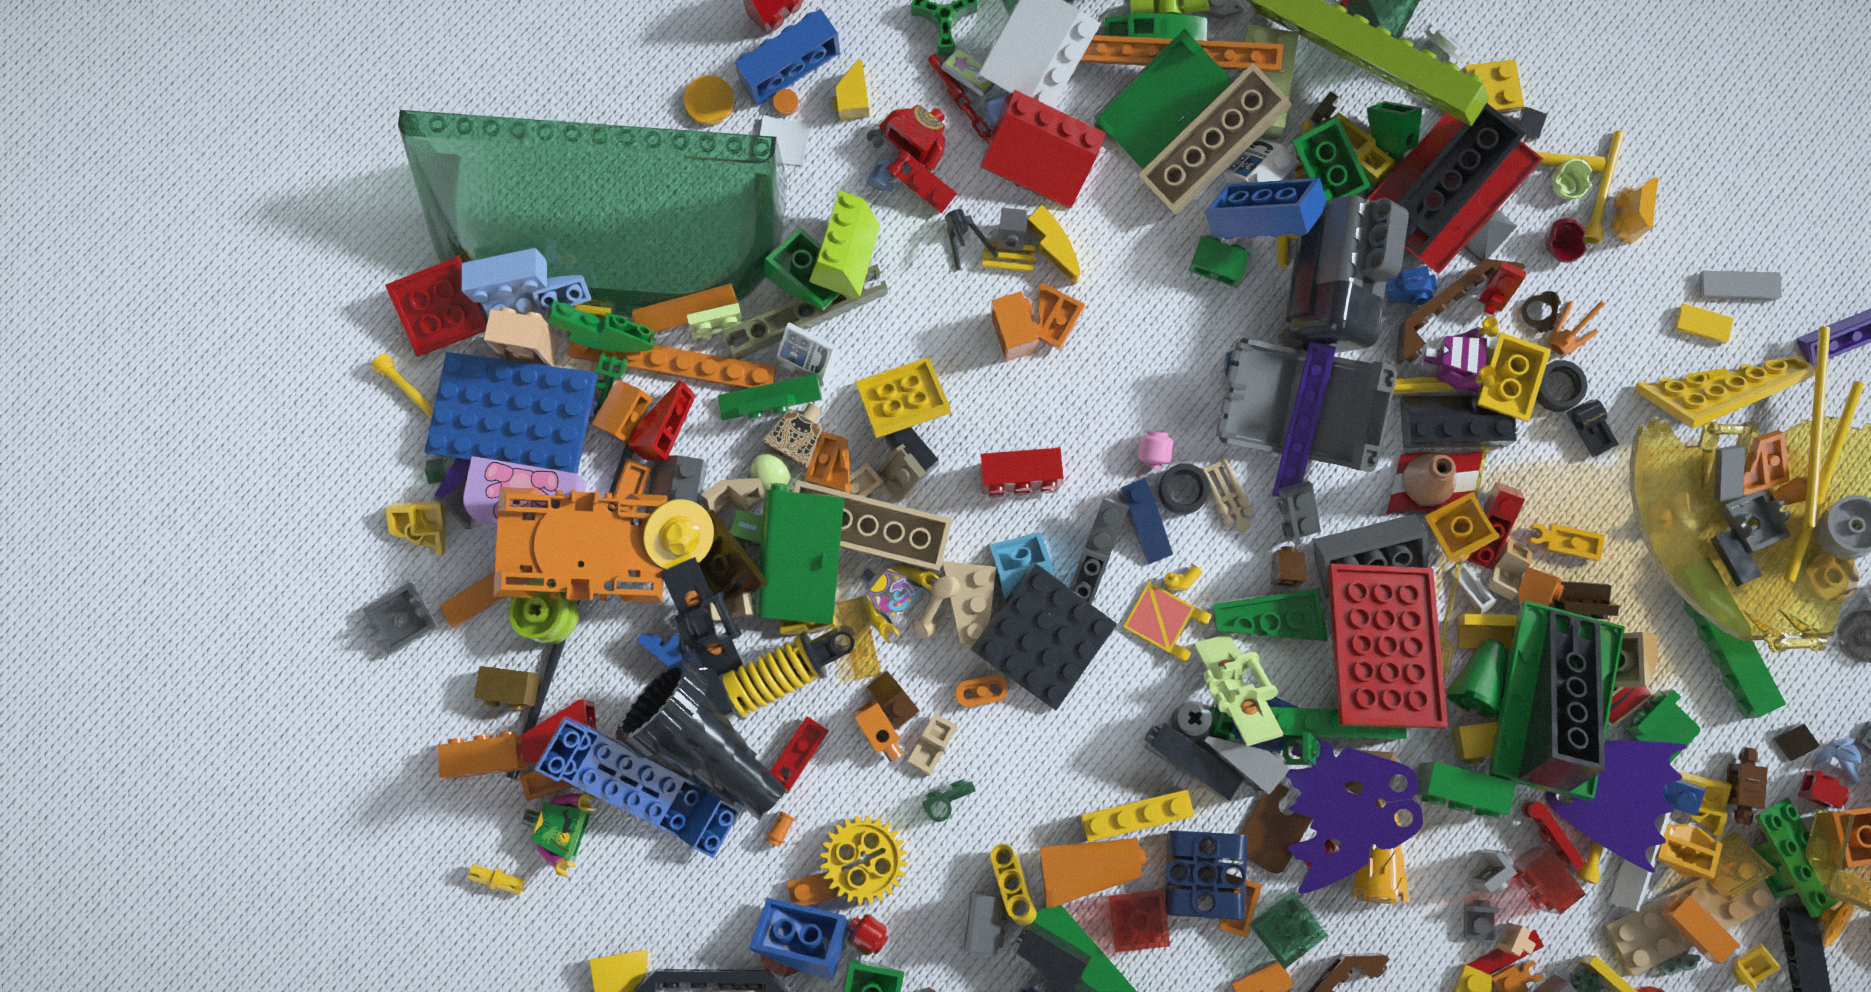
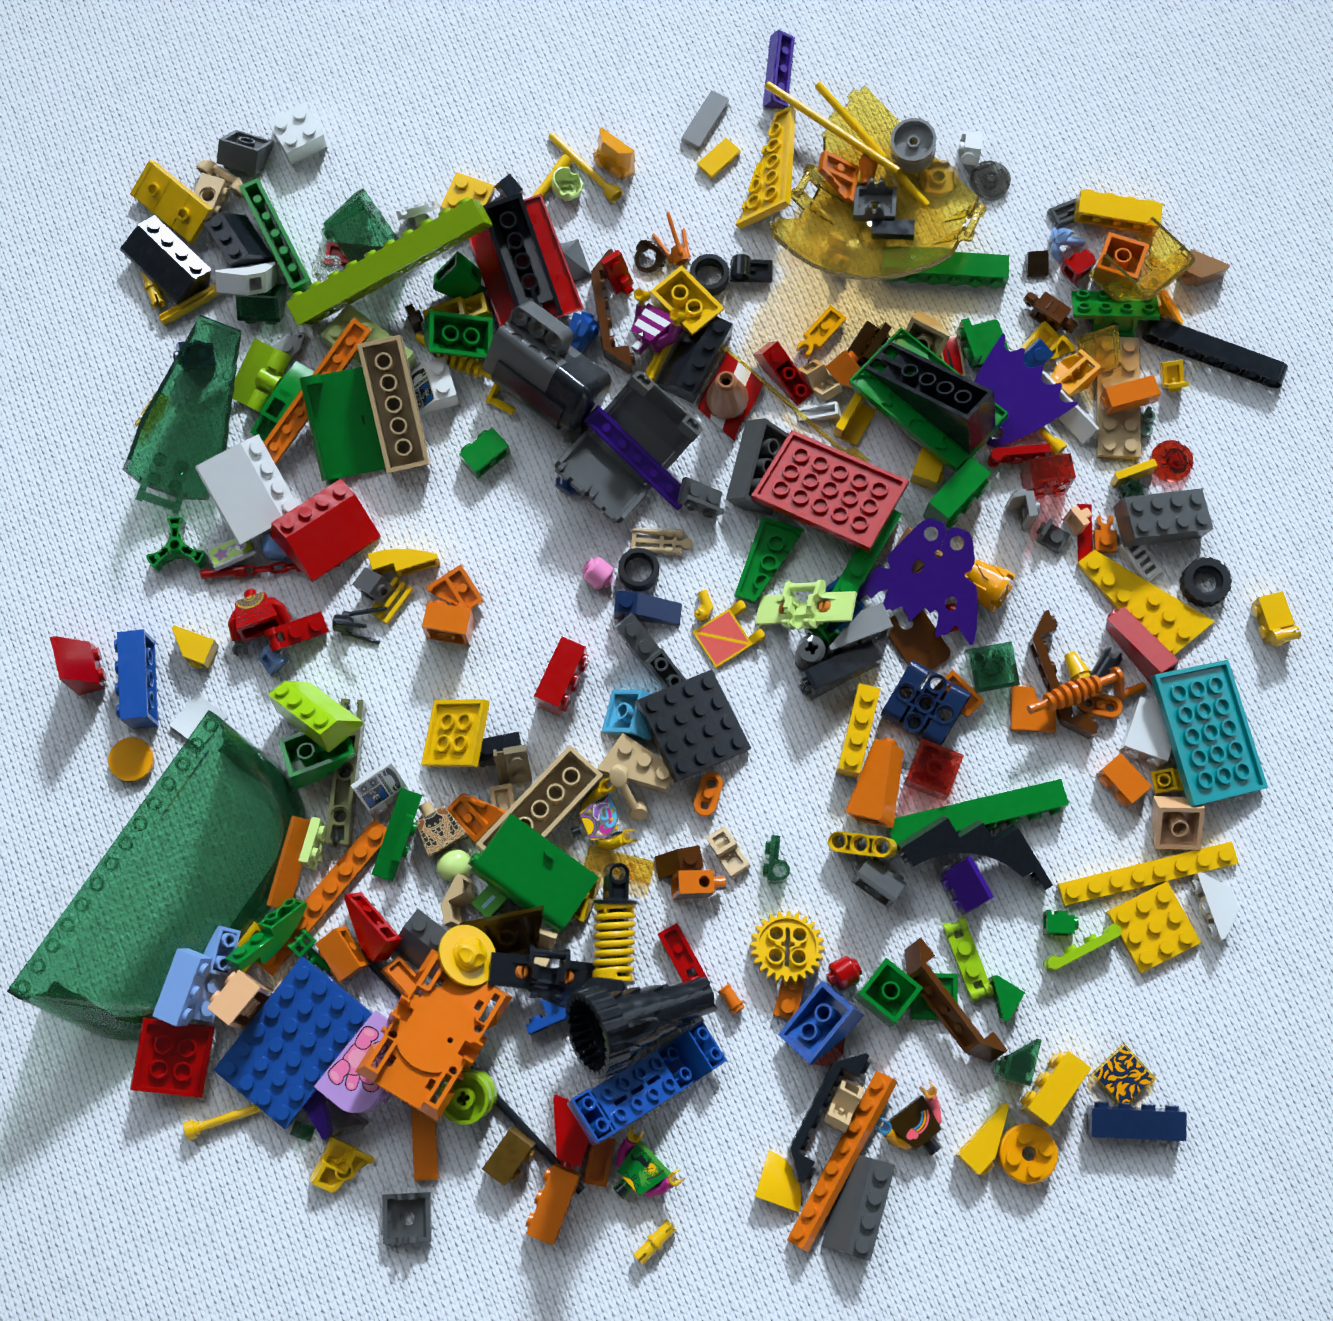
camera: 65 degrees left, 5 degrees down
(785, 102) = (169, 702): orange tile -> none
(1266, 208) = (468, 396): blue brick -> none
(1288, 567) = (737, 527): reddish brown slope -> none
(1310, 749) = (875, 582): green bracket -> none
(1461, 528) = (774, 395): light orange slope -> none
(1481, 680) = (887, 442): green cone -> none
(1566, 240) = (608, 212): dark red hair -> none
(1729, 473) = (833, 200): tile -> none

